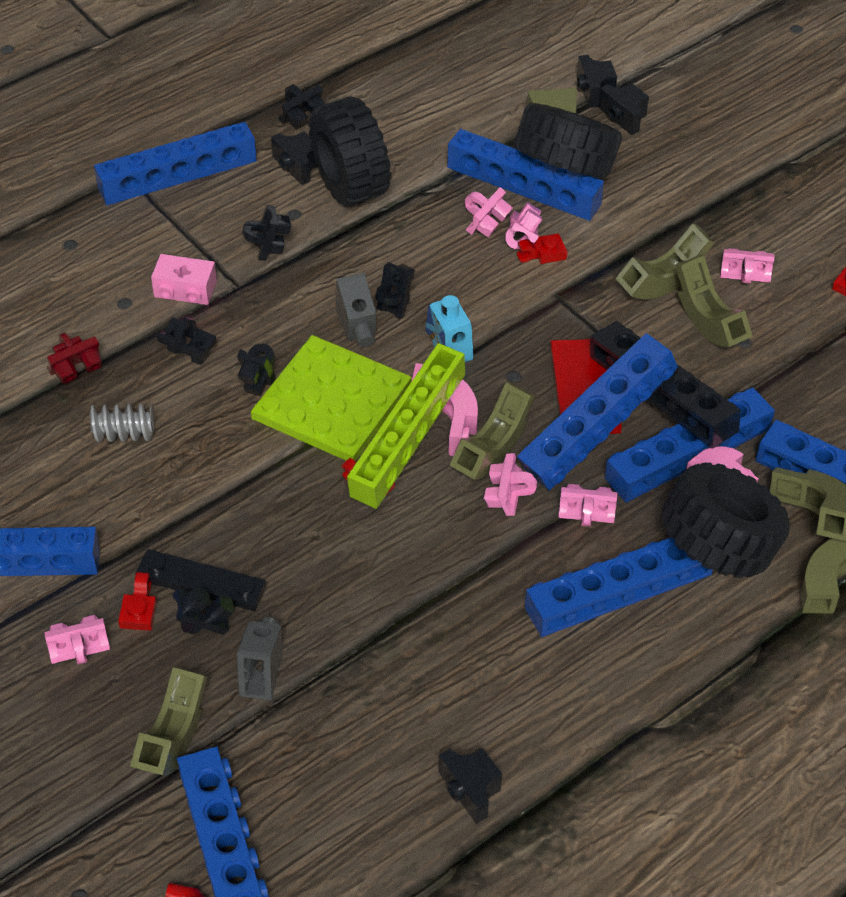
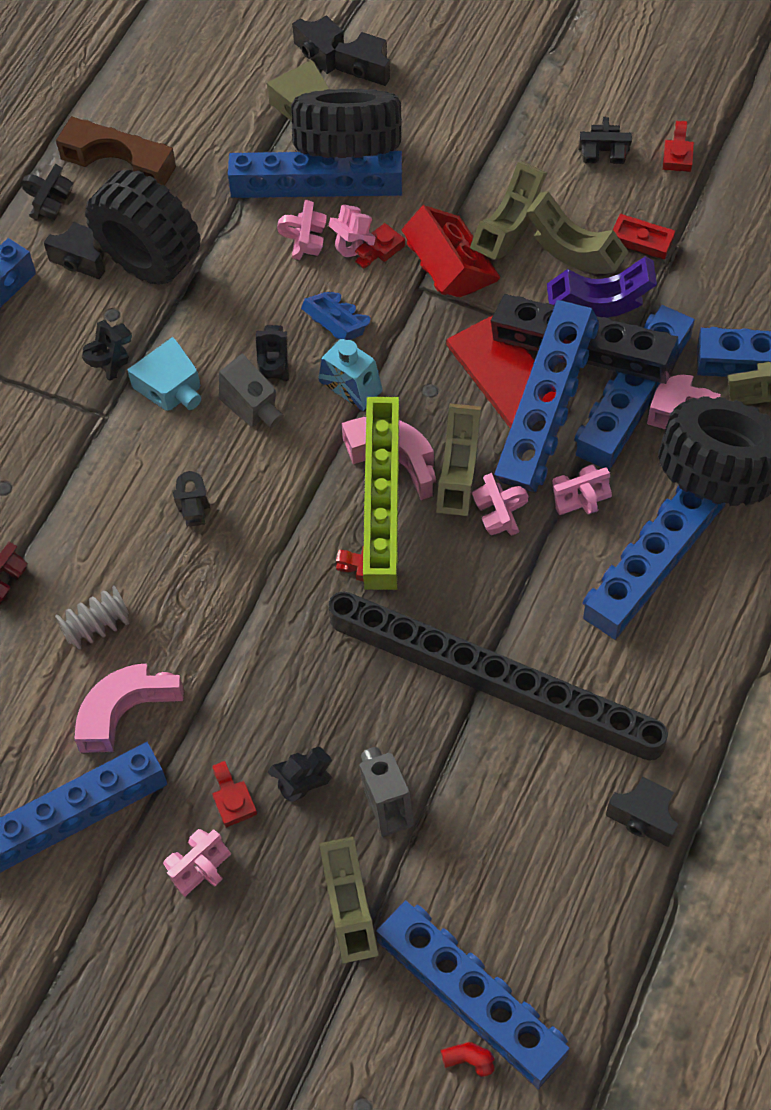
camera: 25 degrees left, 10 degrees up
(98, 487) = (113, 697): none -> bright pink arch
(175, 338) = (88, 503): black hips -> none
(184, 279) = (52, 436): bright pink brick -> none
(186, 574) = (273, 740): black plate -> none
(301, 273) = (167, 377): none -> medium azure torso
(331, 398) = (276, 494): lime plate -> none
(347, 534) = (503, 687): none -> black beam
(396, 113) = (86, 142): none -> reddish brown arch
(470, 286) = (334, 316): none -> blue plate
(591, 276) = (445, 252): none -> red slope
(707, 362) = (605, 296): none -> dark purple arch
(757, 265) = (586, 172): bright pink hips -> none
(776, 331) = (644, 236): none -> red plate
(791, 243) = (604, 138): none -> black hips

